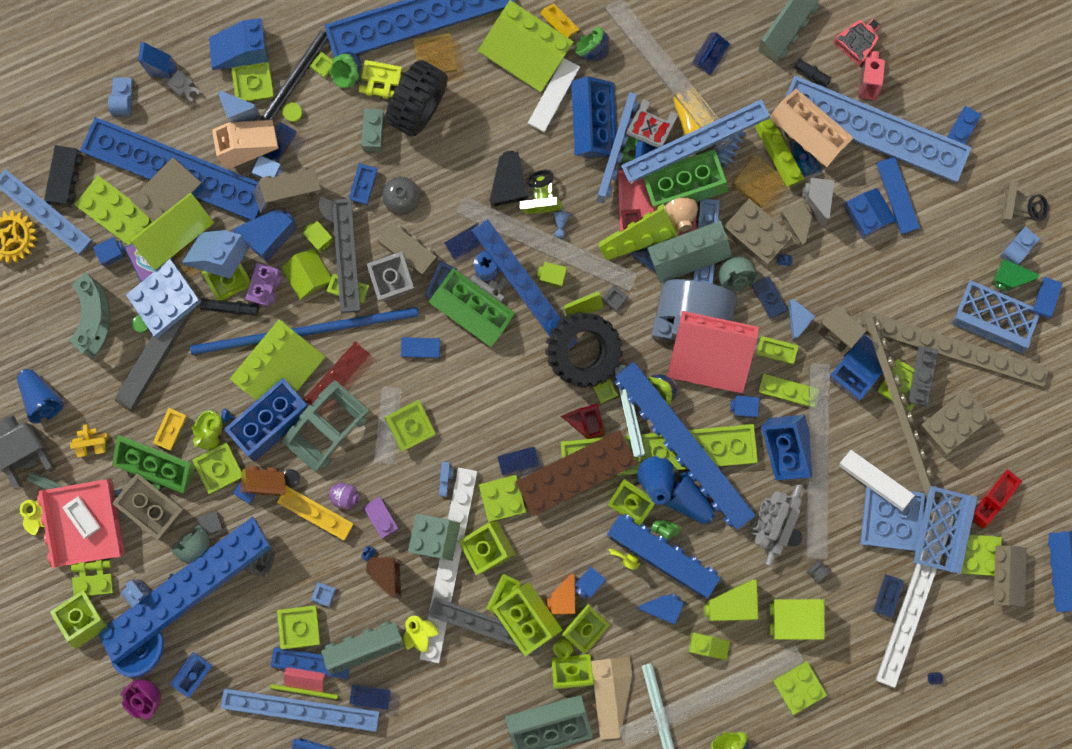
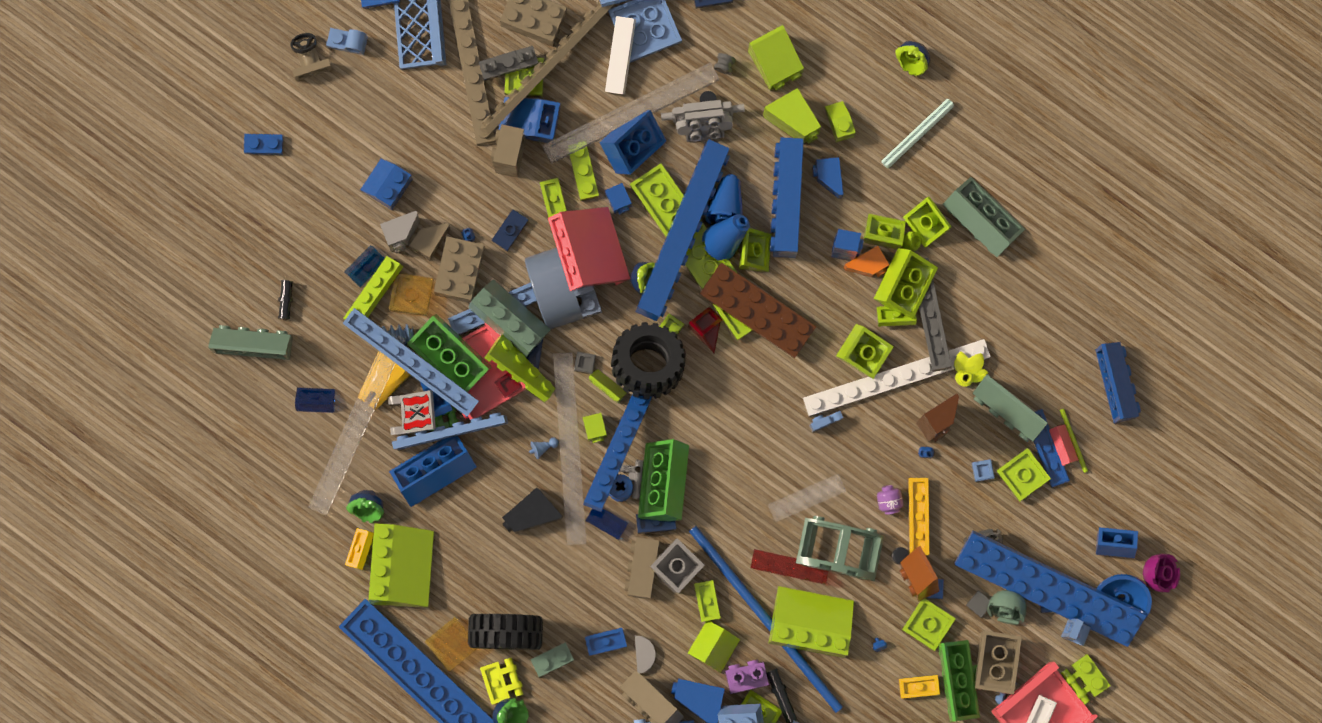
camera: 130 degrees left, 0 degrees up
(78, 619) = (1127, 668): lime slope -> none
(207, 430) = (901, 652): lime hair -> none
(267, 420) = (862, 603): blue slope -> none
(300, 709) = (1091, 434): medium blue plate -> none
(318, 236) = (675, 655): lime brick -> none
(346, 255) = (679, 617): dark grey plate -> none
(370, 697) = (1046, 380): clear blue plate -> none
(381, 518) = (890, 457): medium lavender slope -> none
(401, 195) = (597, 602): dark grey cylinder -> none
(409, 425) = (797, 477): lime plate -> none
(420, 347) = (723, 508): blue tile -> none
(434, 537) = (882, 400): sand green brick -> none
(502, 498) = (814, 363): lime plate -> none
(518, 461) = (773, 368): clear blue plate -> none
(543, 194) = (526, 477): lime piece -> none
(553, 95) = (431, 517): white tile -> none
(611, 688) = (918, 183): tan wedge -> none
(630, 560) = (806, 226): neon yellow plate -> none
(631, 420) = (685, 288): light aqua axle -> none
(666, 529) = (761, 208): bright green plate -> none
(682, 213) = (480, 341): light nougat piece -> none
(710, 695) = (880, 97): clear plate -> none
(737, 273) = (504, 268): sand green cylinder -> none
(799, 318) = (516, 193): medium blue slope -> none
(799, 688) = (831, 28): lime plate -> none
(811, 127) = (339, 272): light nougat slope -> none
(858, 40) = (234, 274): torso -> none
(871, 76) = (262, 245): coral torso -> none
(888, 133) = (308, 218): medium blue plate -> none
(897, 195) = (357, 168): blue tile -> none
(1011, 276) = (377, 34): green slope -> none

